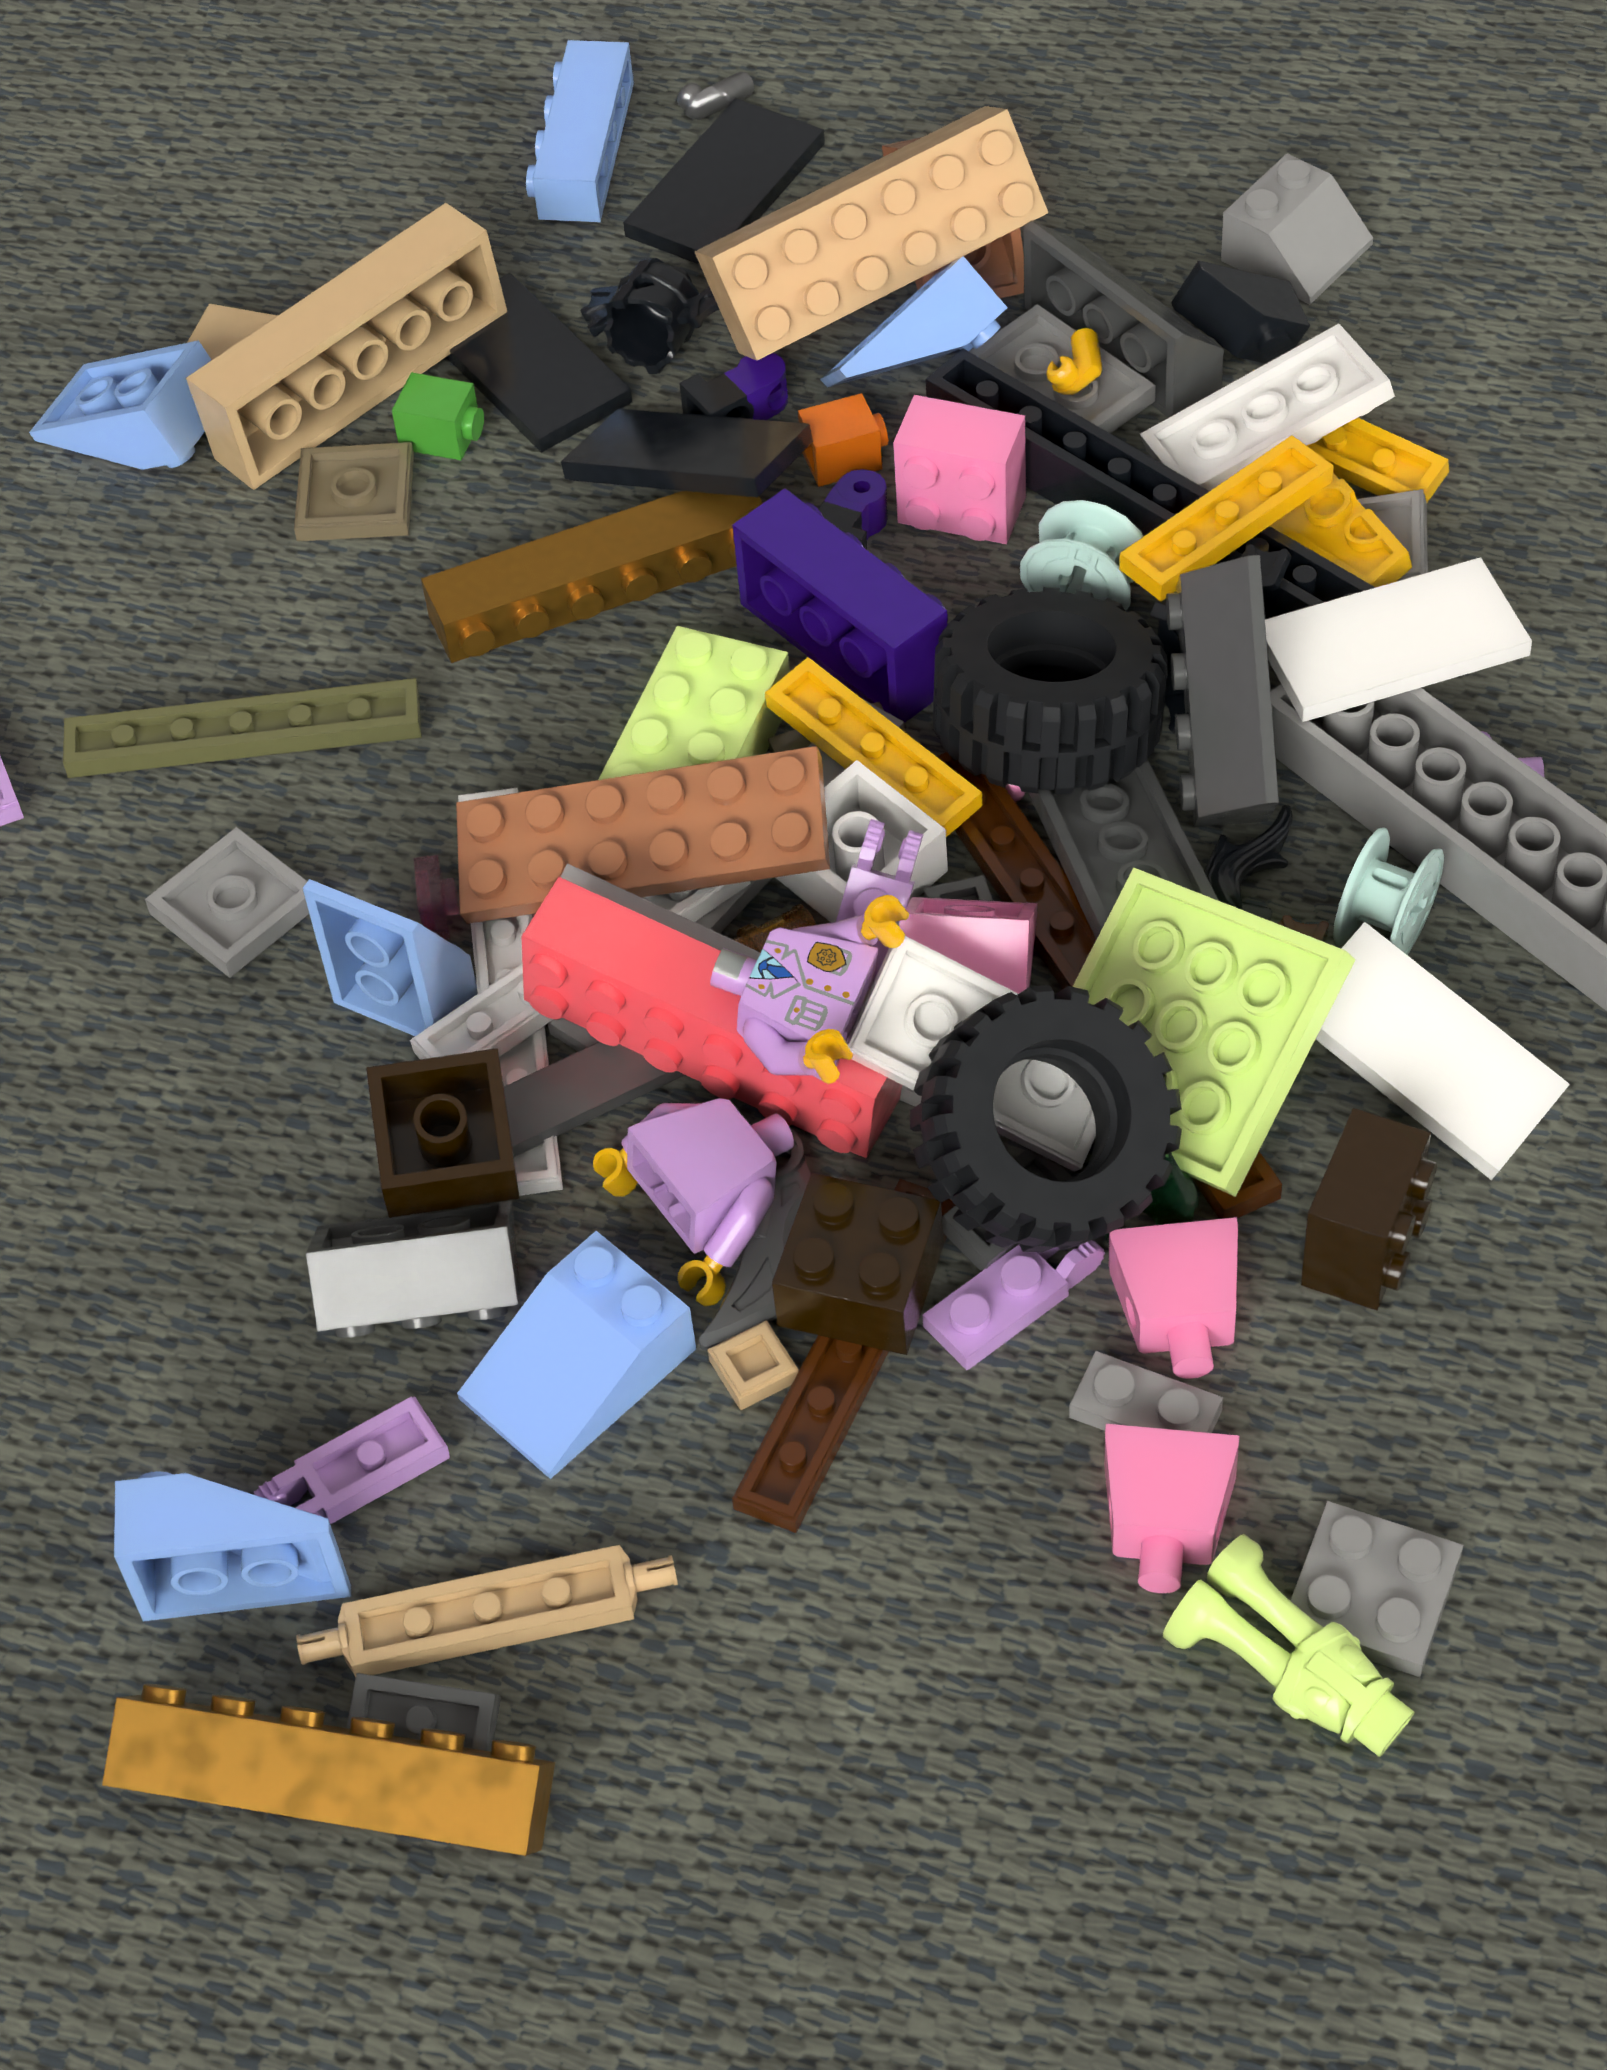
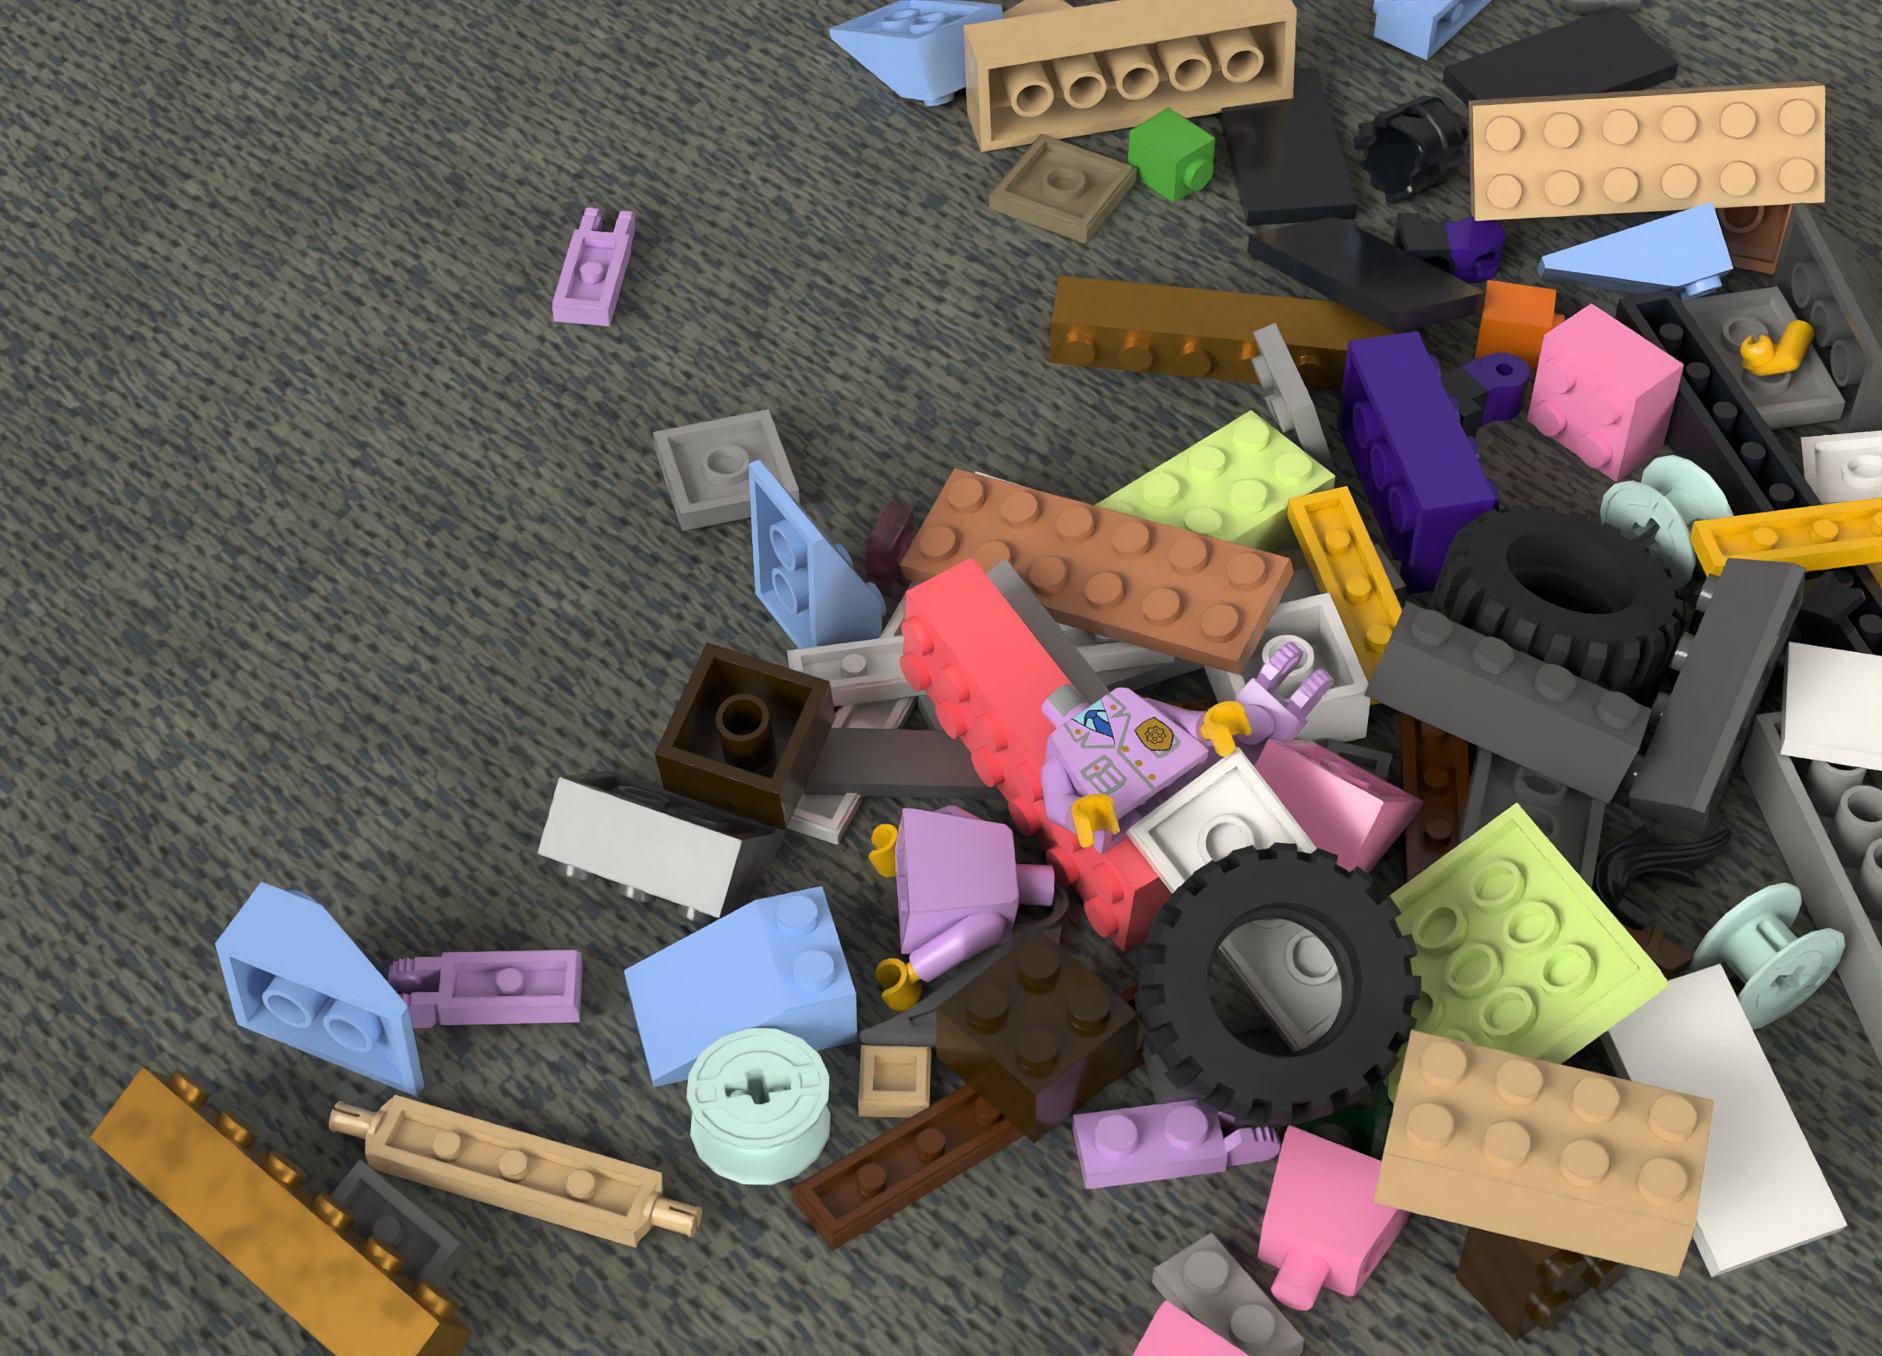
camera: 25 degrees right, 5 degrees down
(241, 728) = (835, 334): olive plate -> none
(660, 1445) = (759, 1106): none -> light aqua piece
(700, 597) = (1290, 403): none -> light grey plate
(1064, 784) = (1509, 702): none -> dark grey brick
(1345, 1145) = (1546, 1153): none -> tan brick

